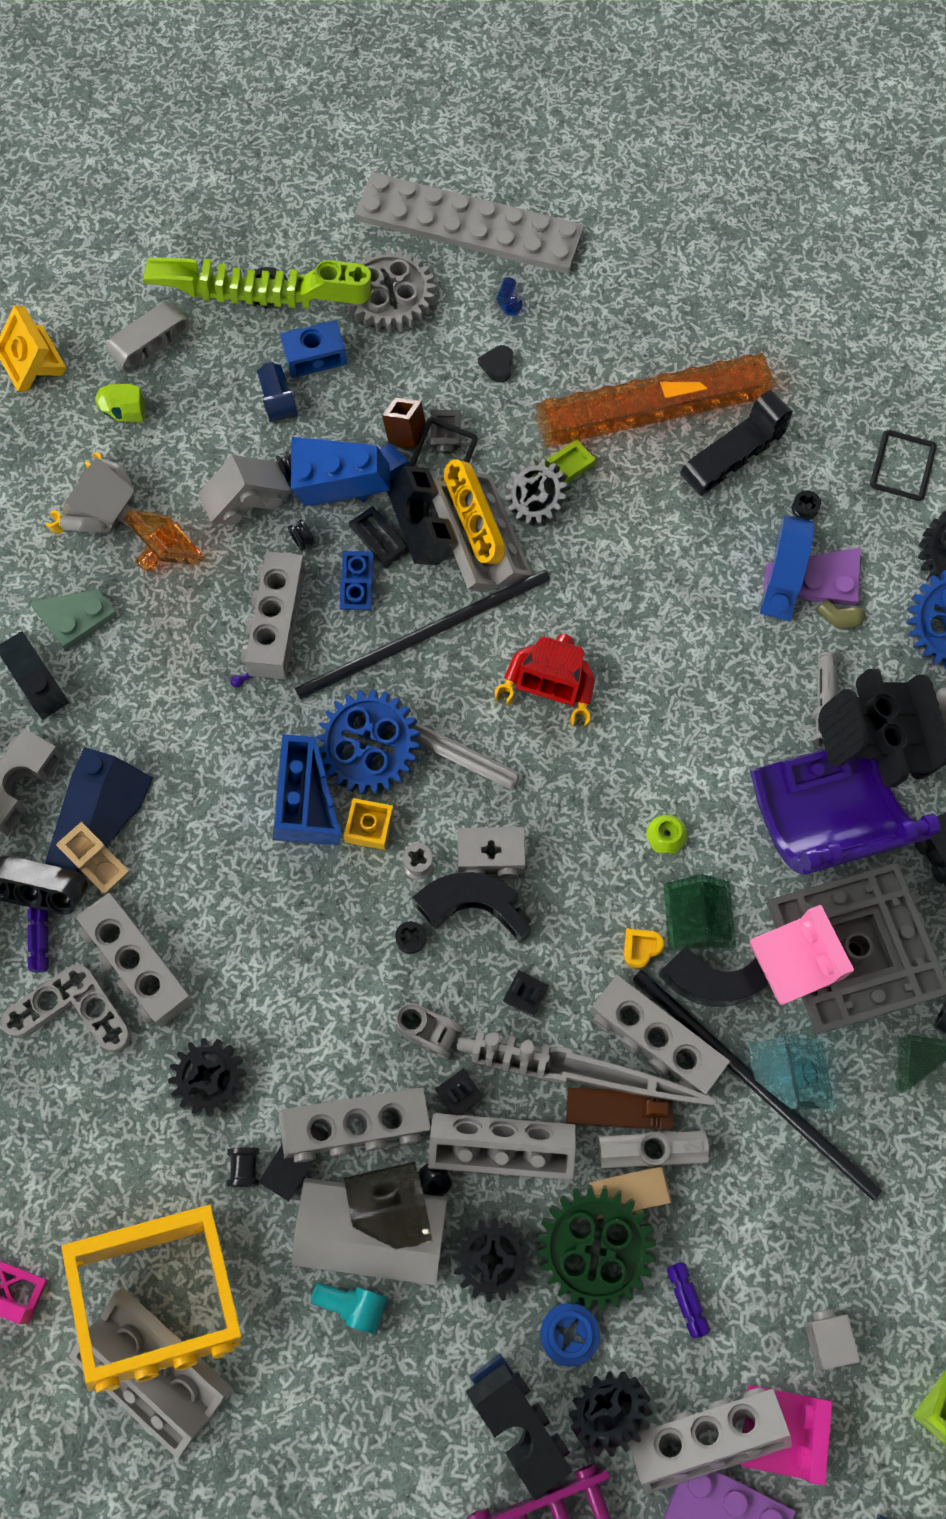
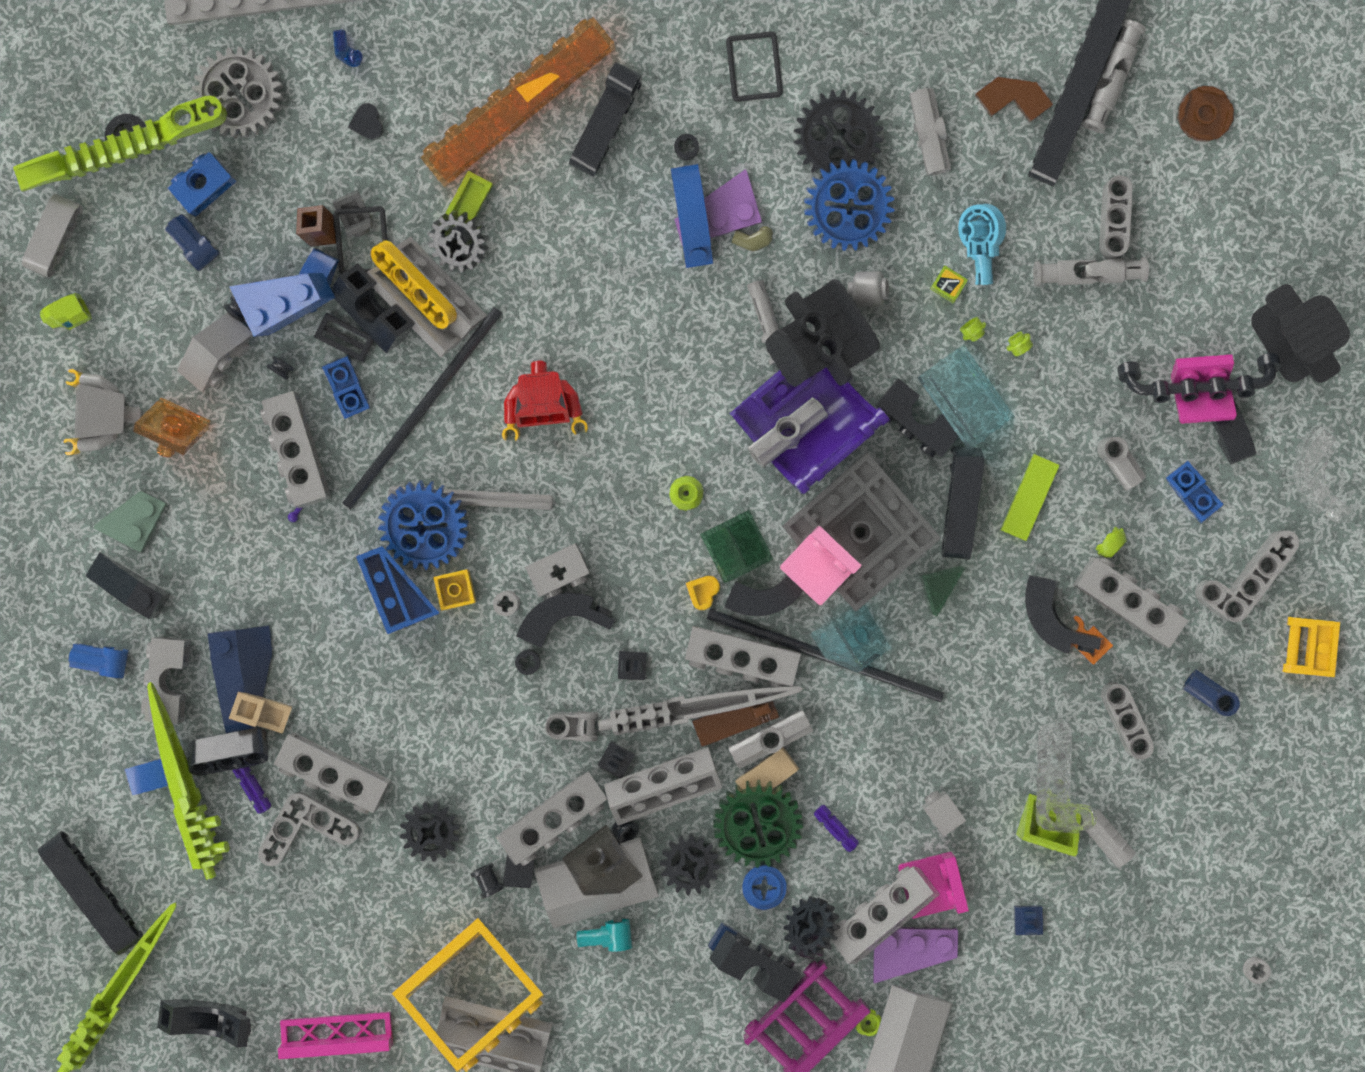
camera: 20 degrees left, 20 degrees up
(808, 813) = (774, 443): none -> light grey piece

